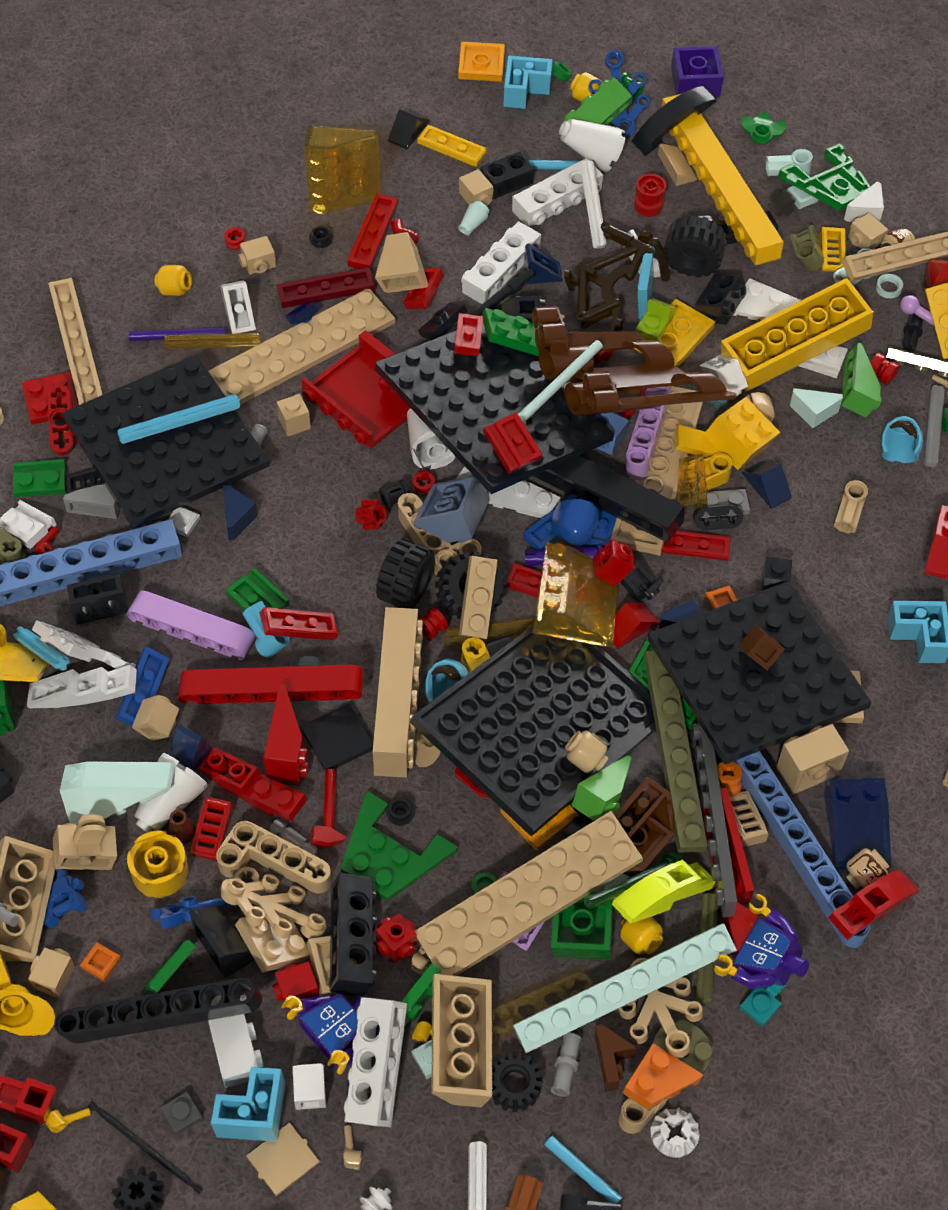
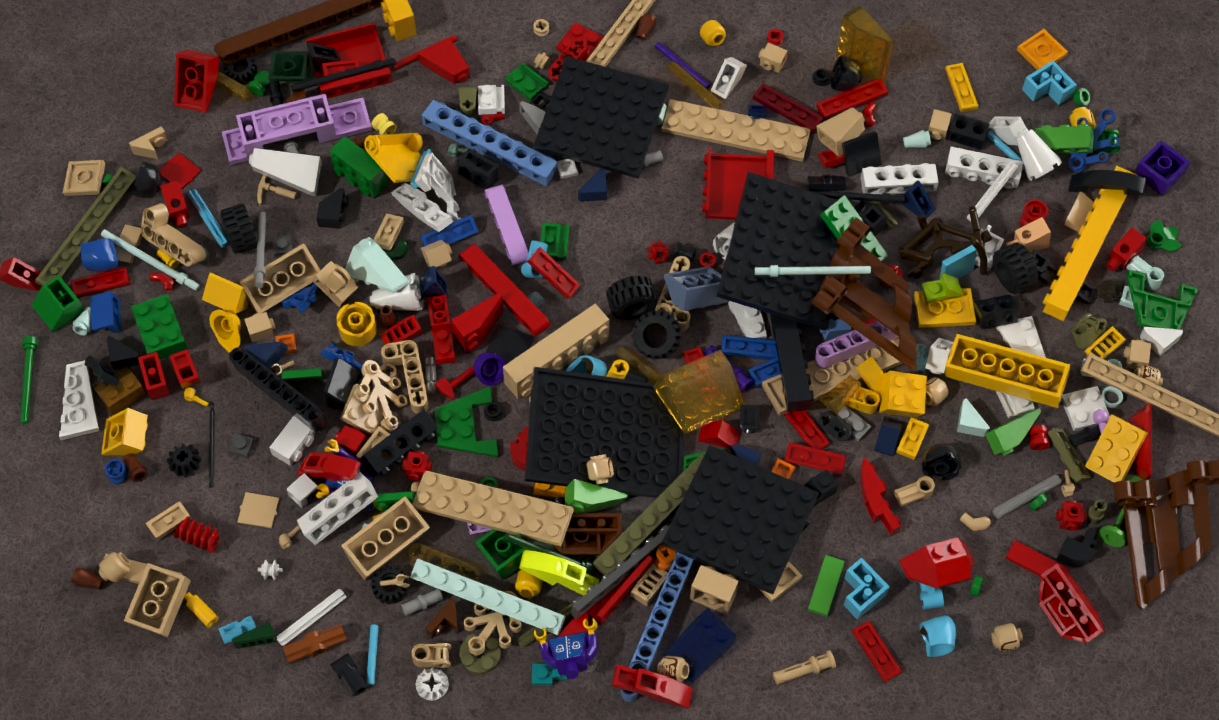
camera: 50 degrees right, 5 degrees up
(31, 445) = (541, 60): none -> tan plate
(44, 605) = (454, 149): none -> sand green hand
(74, 742) = (389, 231): none -> tan plate
(95, 988) = (267, 352): none -> dark blue slope
(98, 326) = (646, 25): none -> copper cone
(108, 749) = (399, 251): none -> dark green arm
(126, 992) = (278, 368): none -> tan hand
(178, 418) = (616, 111): medium azure axle -> none
(252, 1115) = (268, 477): medium azure brick -> none
(293, 415) = (683, 163): tan brick -> none
(317, 1029) = (329, 466): none -> red slope
(343, 213) = (847, 74): none -> black cylinder
(350, 772) = (489, 368): none -> dark purple piece
(407, 128) = (948, 54): black slope -> none
(433, 623) = (619, 336): red wheel -> none
(445, 266) = (861, 153): none -> black tile
(468, 334) = (815, 201): plate -> none
(478, 597) = (648, 343): tan plate -> none
(480, 822) = (519, 448): none -> red brick
(512, 442) = (754, 279): red plate -> none
(524, 1069) = (397, 581): none -> tan hand
(539, 143) = (1006, 128): none -> white slope
(575, 521) = (749, 355): blue piece -> none
(613, 562) = (742, 393): red brick -> none
(660, 1078) = (449, 650): orange wing -> none
(673, 196) = (1033, 235): none -> light nougat torso
(736, 561) = (815, 458): none -> red tile
(755, 165) = (1126, 249): none -> red torso
(761, 647) = (750, 507): reddish brown panel -> none
(793, 466) = (912, 438): none -> yellow plate
(818, 542) = (873, 491): none -> red slope
(840, 455) = (944, 460): none -> black cylinder
(884, 661) = (826, 585): none -> bright green tile
(887, 314) = (1081, 406): none -> white plate
(902, 440) = (991, 483): medium azure piece -> none
(928, 486) = (975, 524): none -> tan arm

